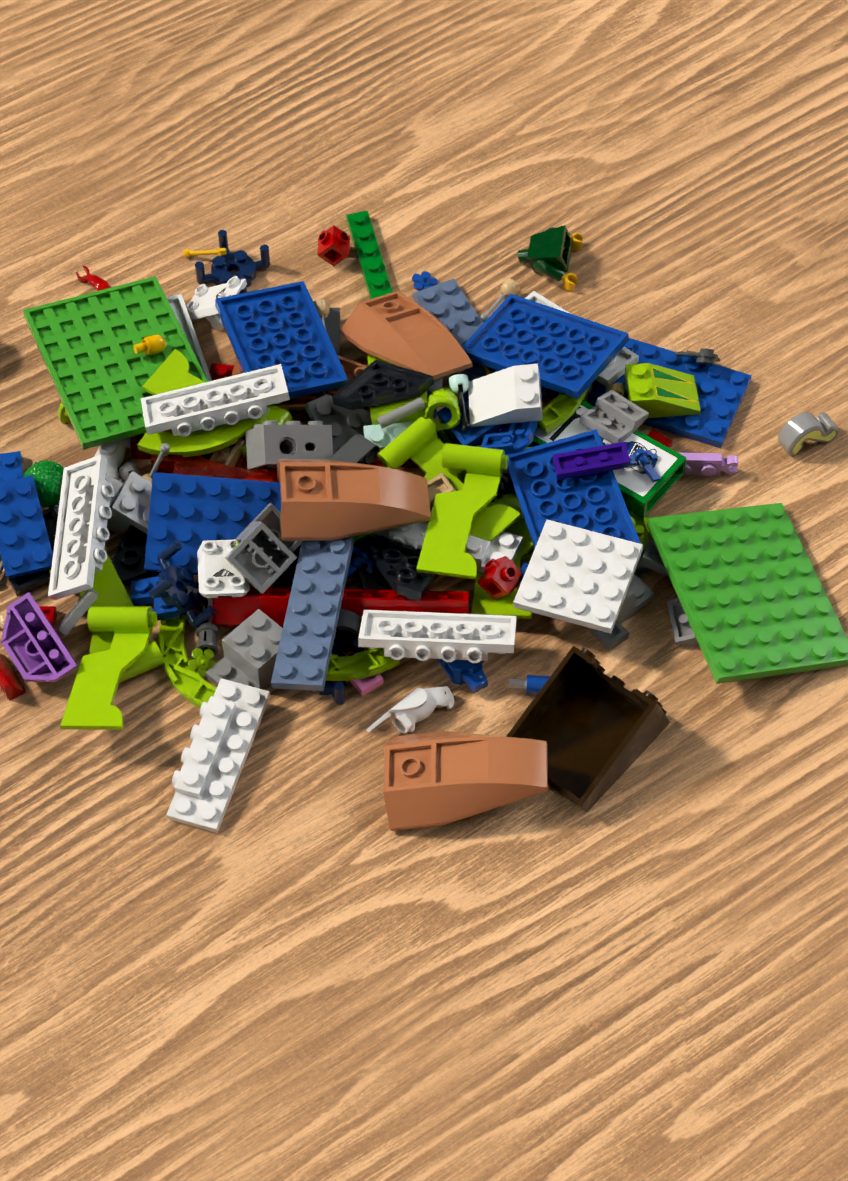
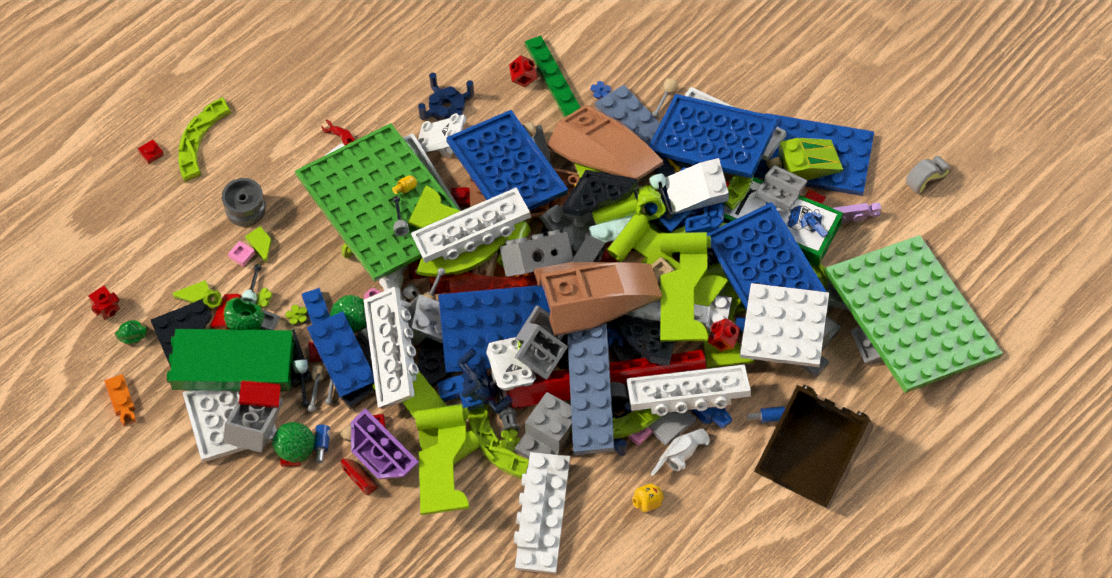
camera: 10 degrees left, 5 degrees up
(78, 611) = (404, 416): light grey tile -> none
(131, 391) = (400, 227): none -> light grey hinge
(187, 253) = (433, 90): yellow hinge -> none
(356, 758) = (648, 497): none -> yellow head
(401, 412) = (619, 212): light grey piece -> none
(410, 675) = (671, 425): none -> light grey slope
(458, 775) = (729, 498): nougat wedge -> none
(551, 252) = (696, 52): dark green torso -> none
(591, 460) = (775, 230): dark purple plate -> none
(704, 357) = (836, 123): dark grey plate -> none

